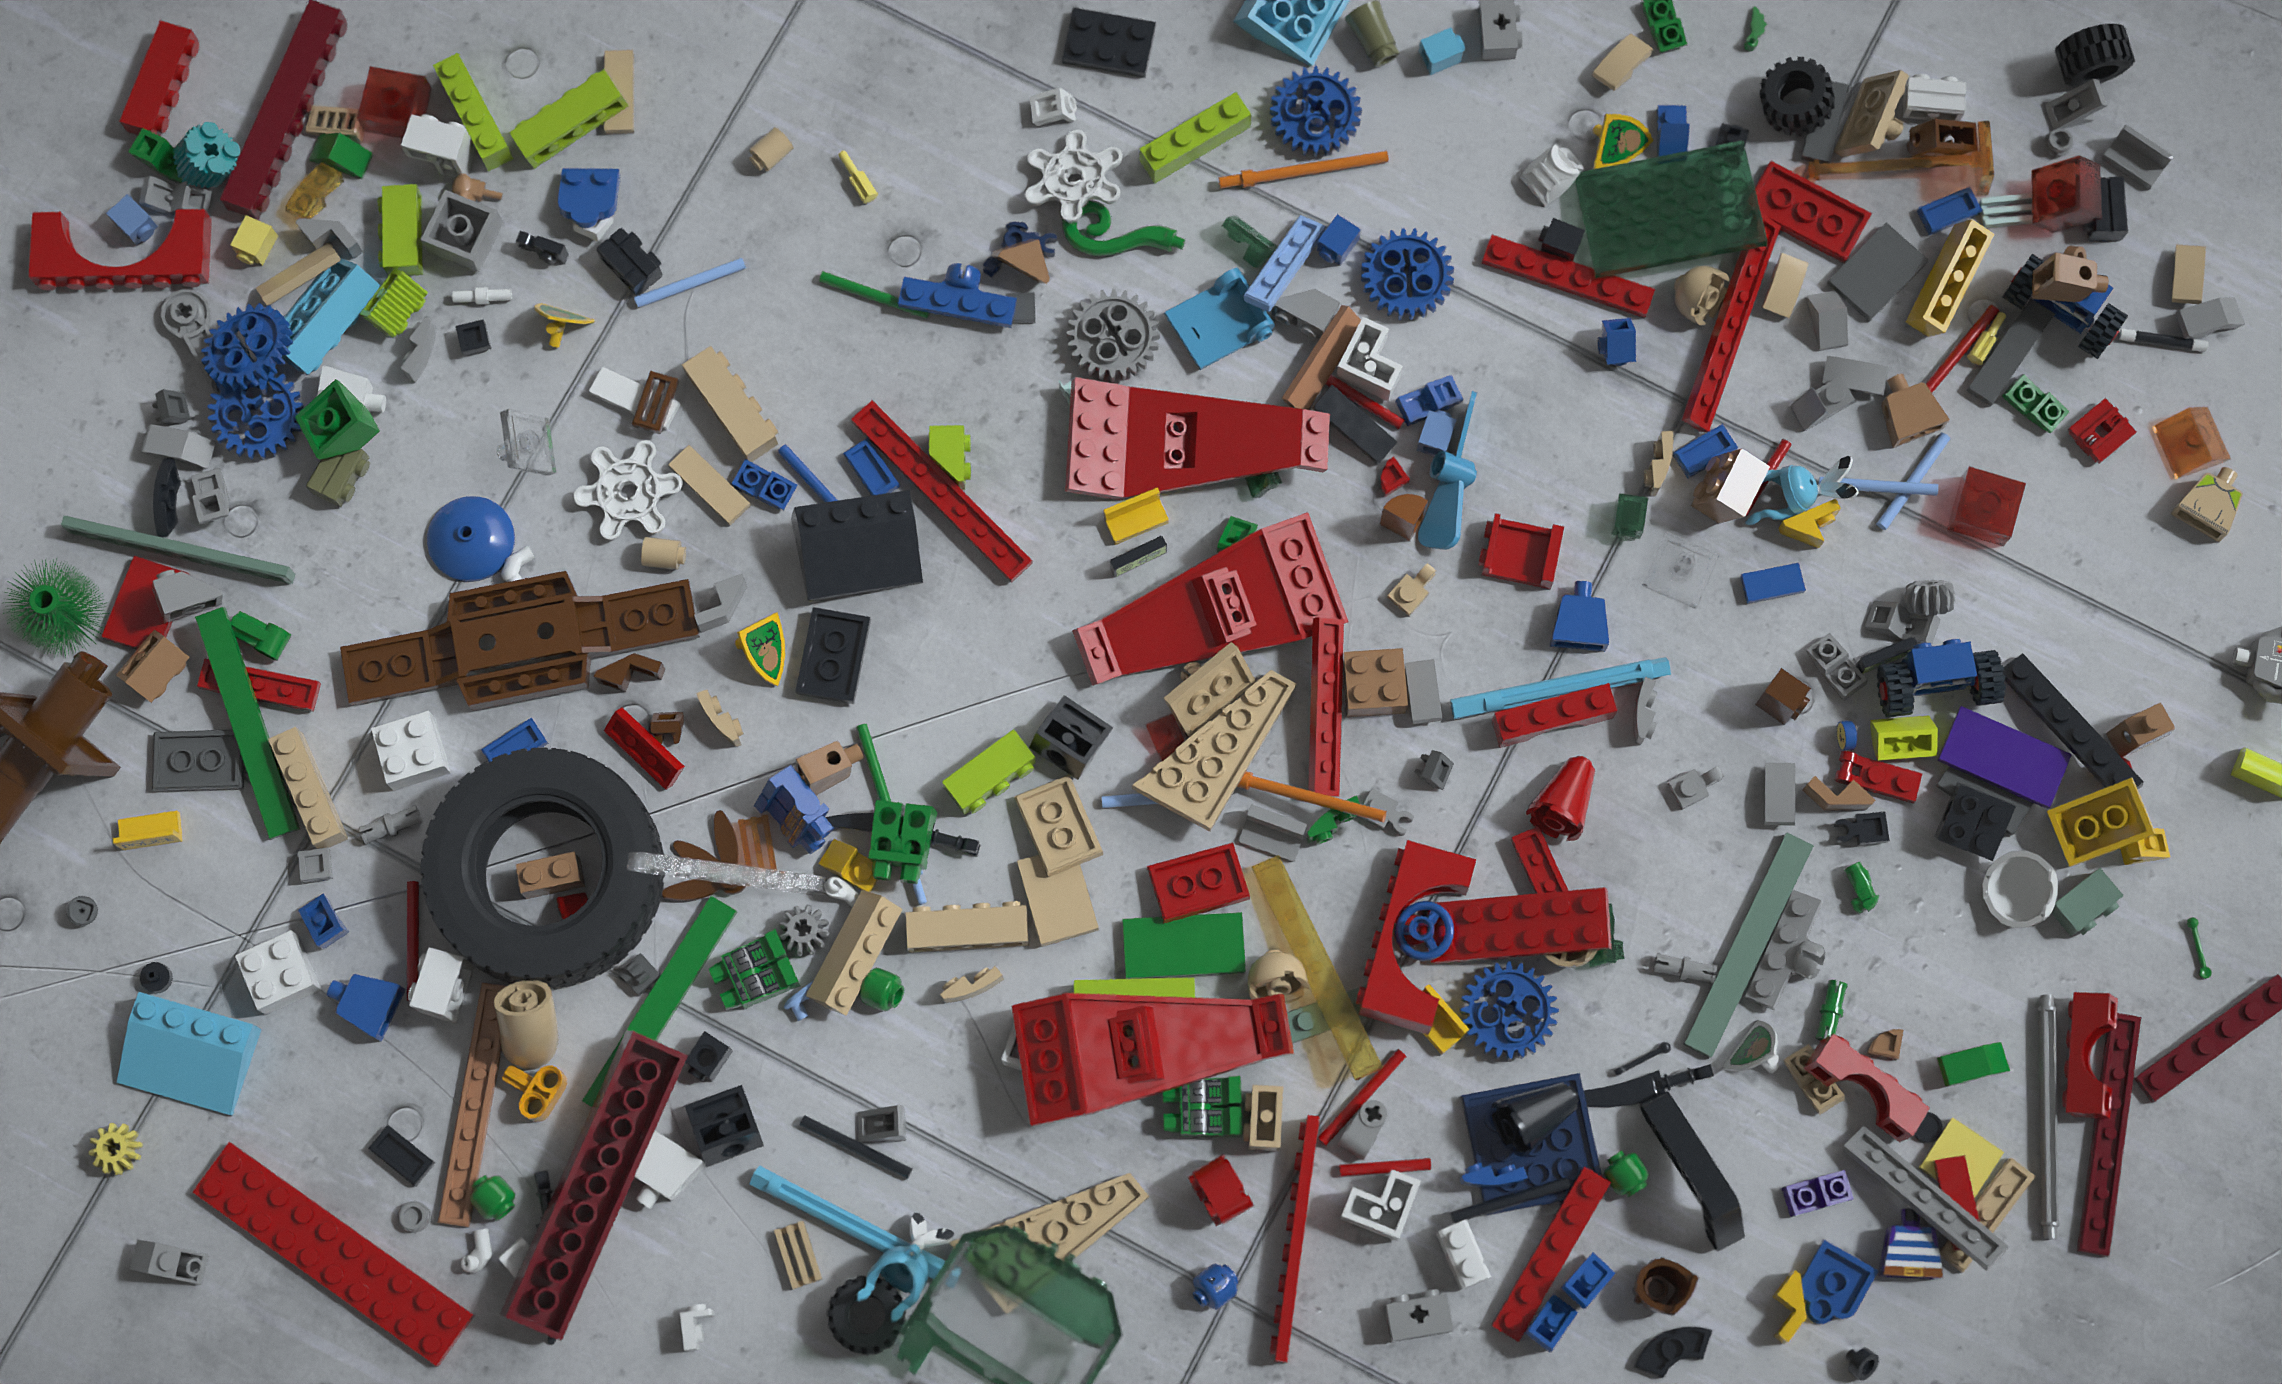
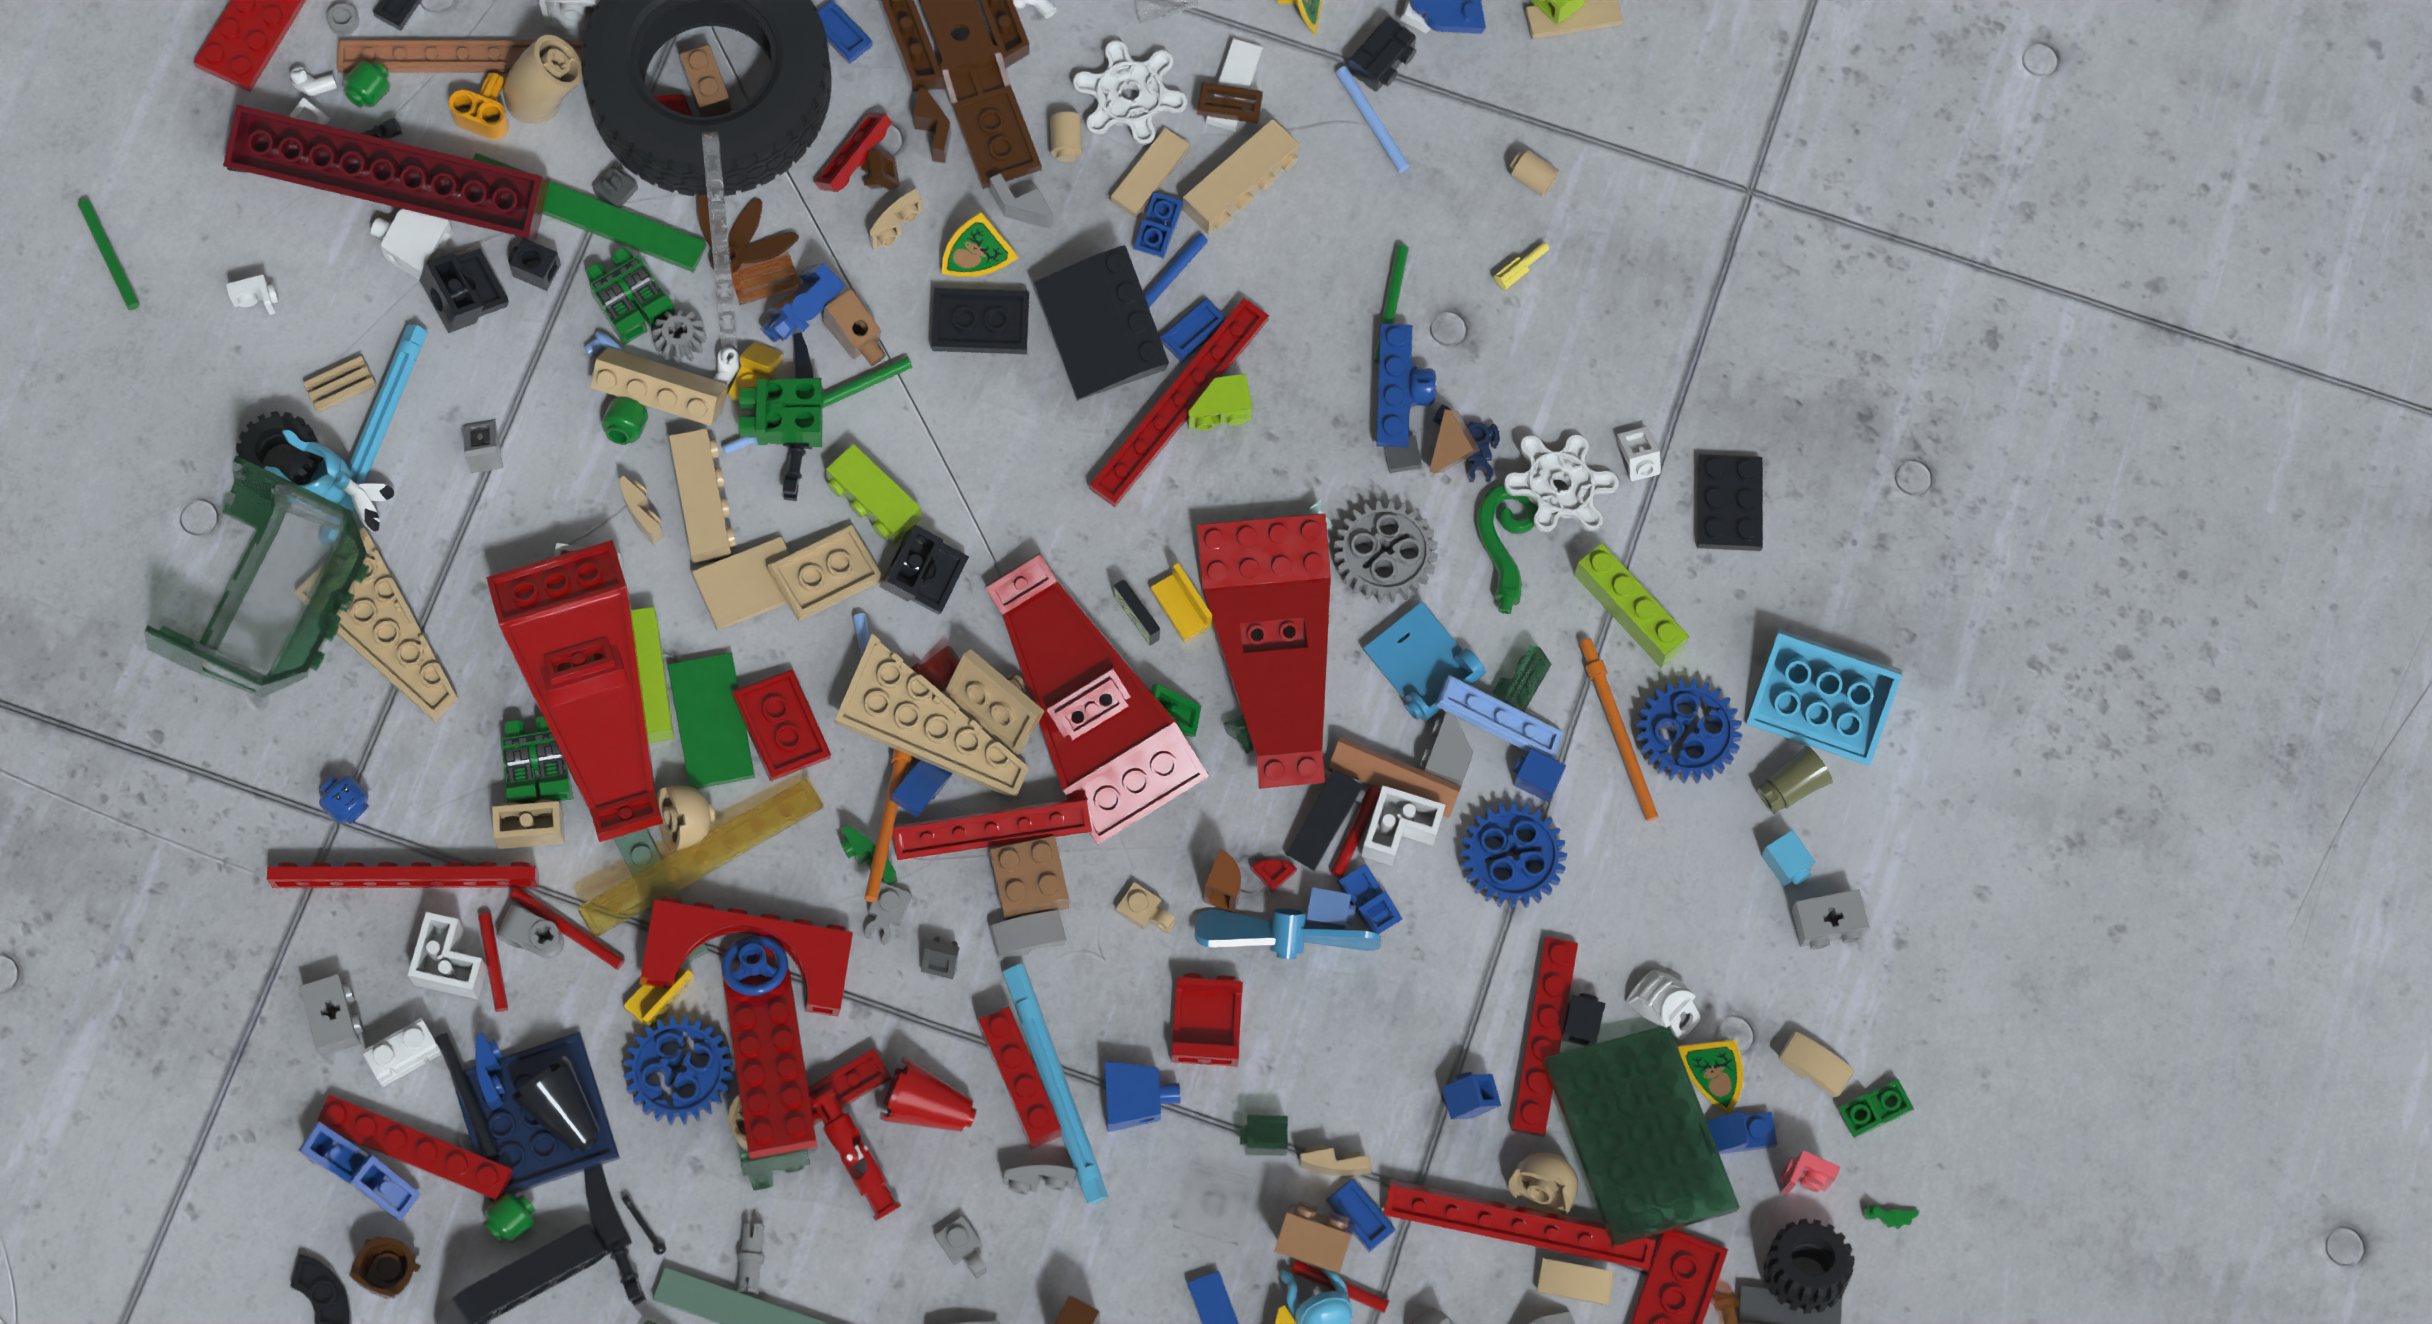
camera: 75 degrees right, 5 degrees down
(856, 1147) = (457, 424): black bar -> none
(1221, 1189) = (444, 787): red brick -> none
(1272, 833) = (846, 795): light grey panel -> none
(1279, 765) = (920, 787): none -> blue slope
(1592, 870) = (847, 1141): none -> red piece
(1718, 88) = (1809, 1169): none -> coral bracket
(1731, 133) = (1750, 1202): black tile -> none

